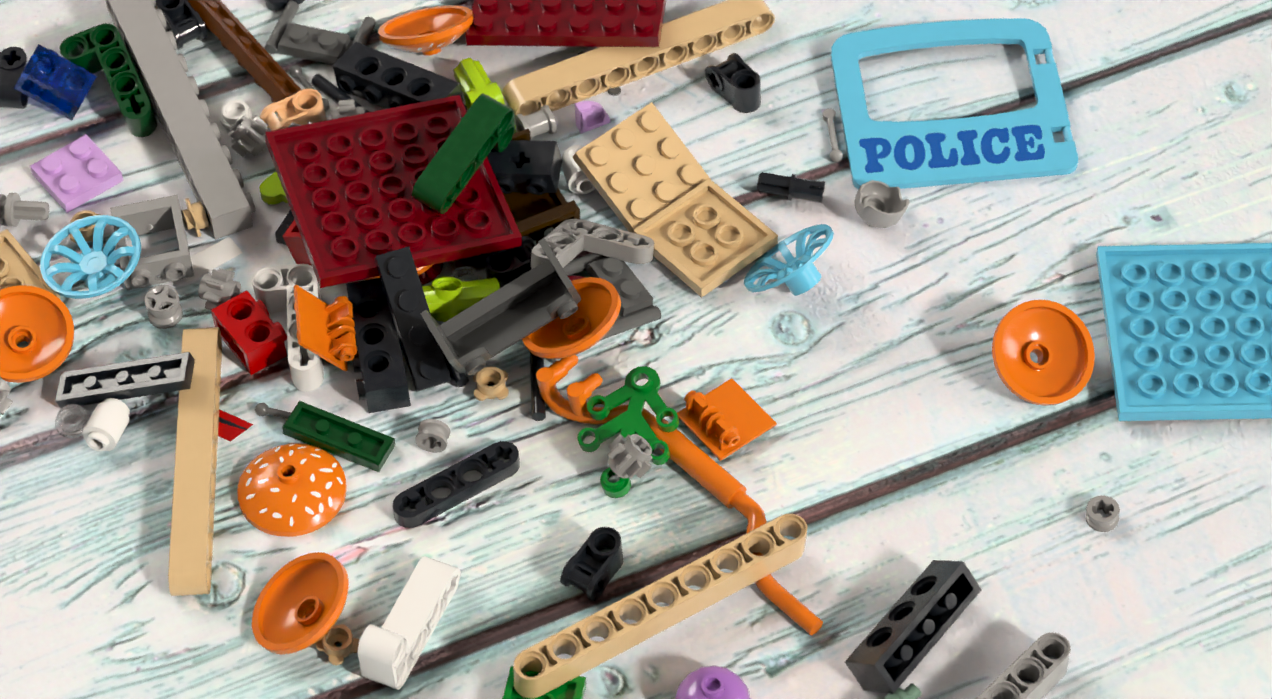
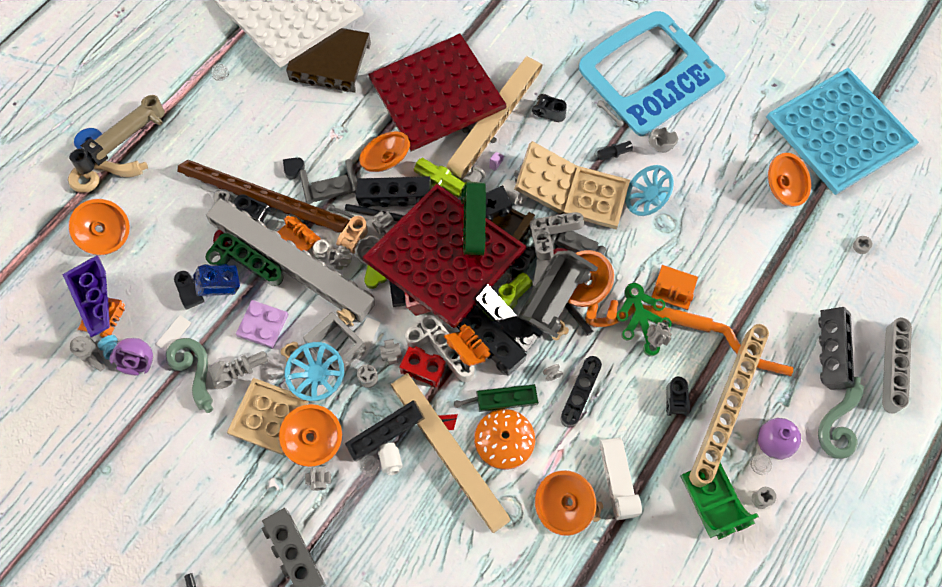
camera: 35 degrees left, 15 degrees up
(217, 79) = (298, 233): none -> orange hinge

